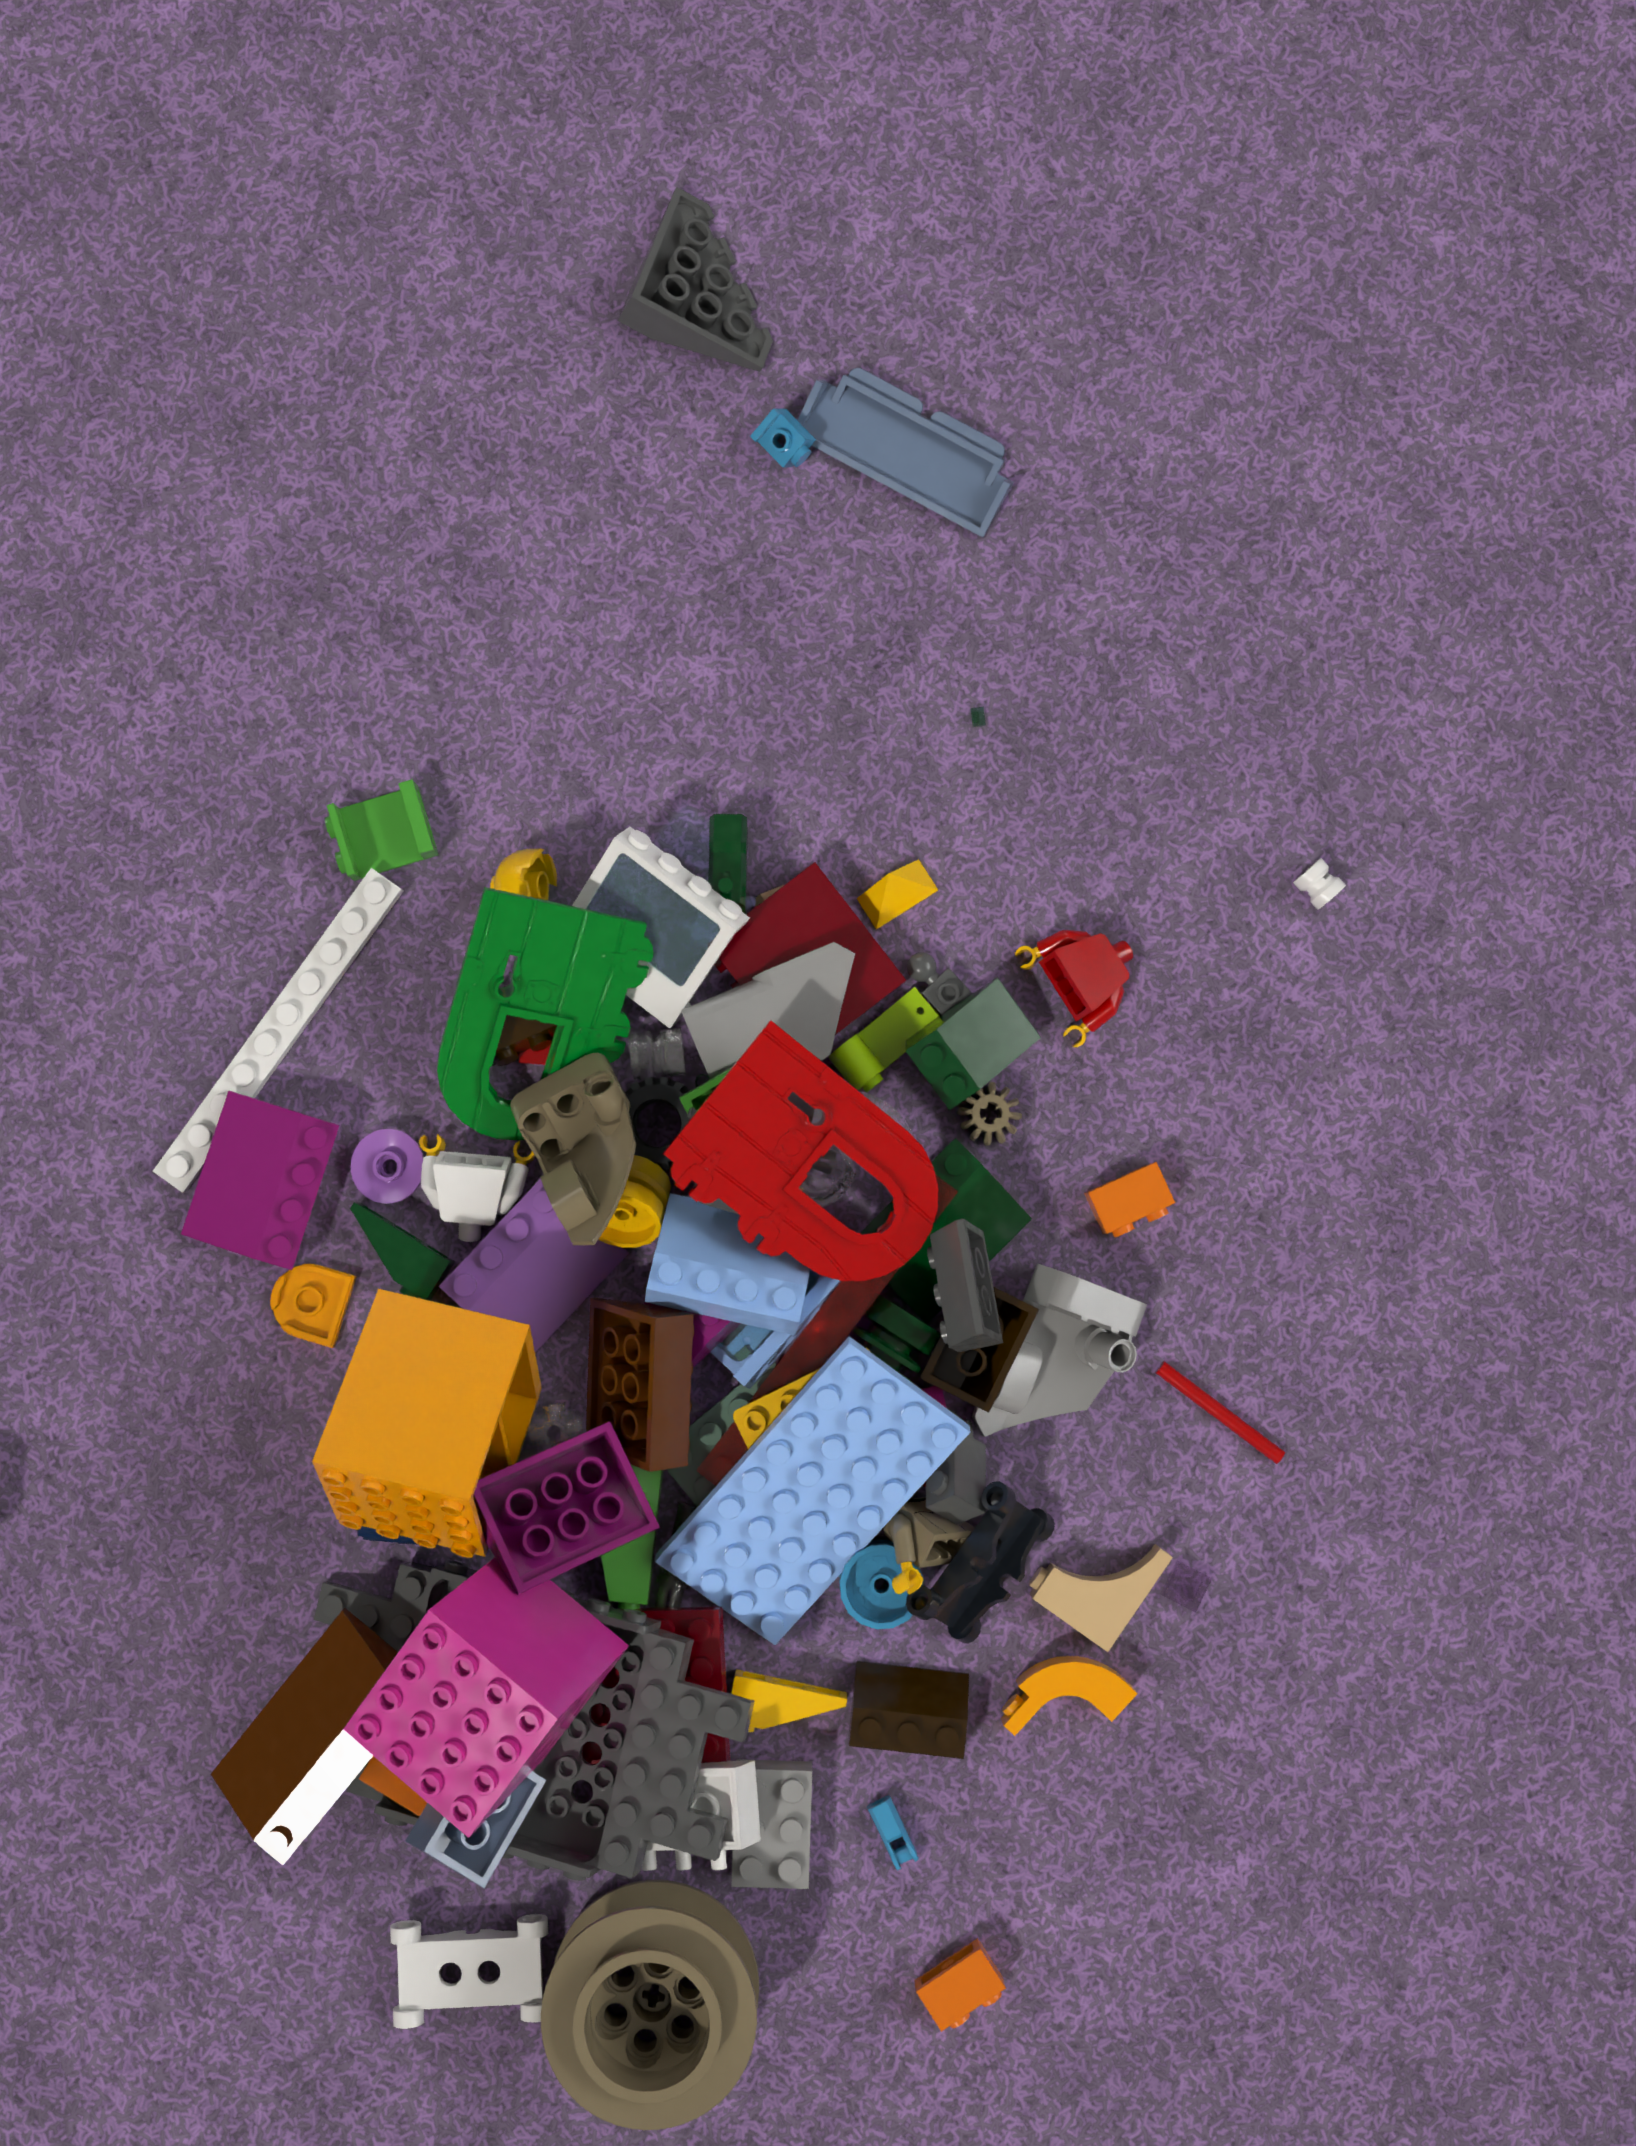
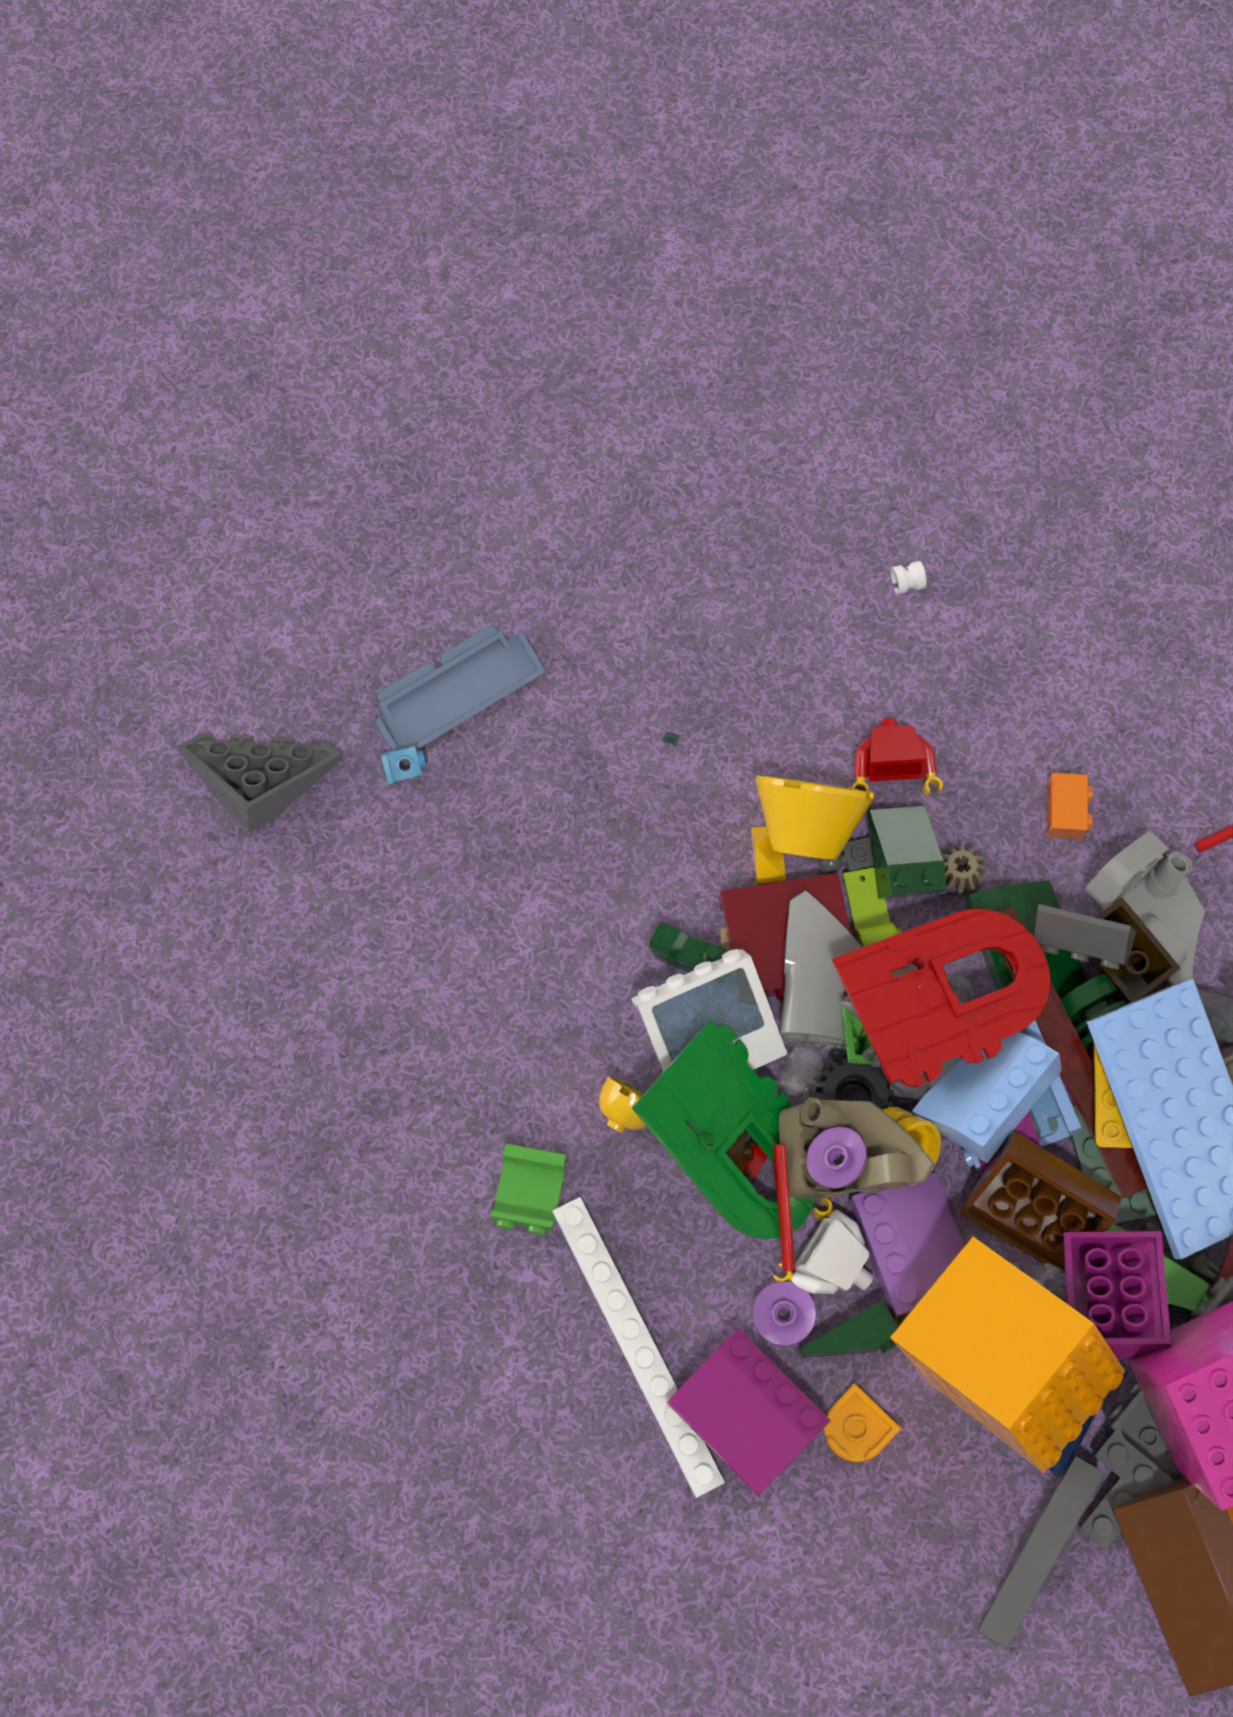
camera: 60 degrees left, 15 degrees down
(278, 1553) = (1040, 1551): none -> dark grey slope
(491, 1108) = (784, 1208): none -> red bar
(561, 1123) = (826, 1151): none -> medium lavender dish
(957, 913) = (810, 816): none -> yellow cone

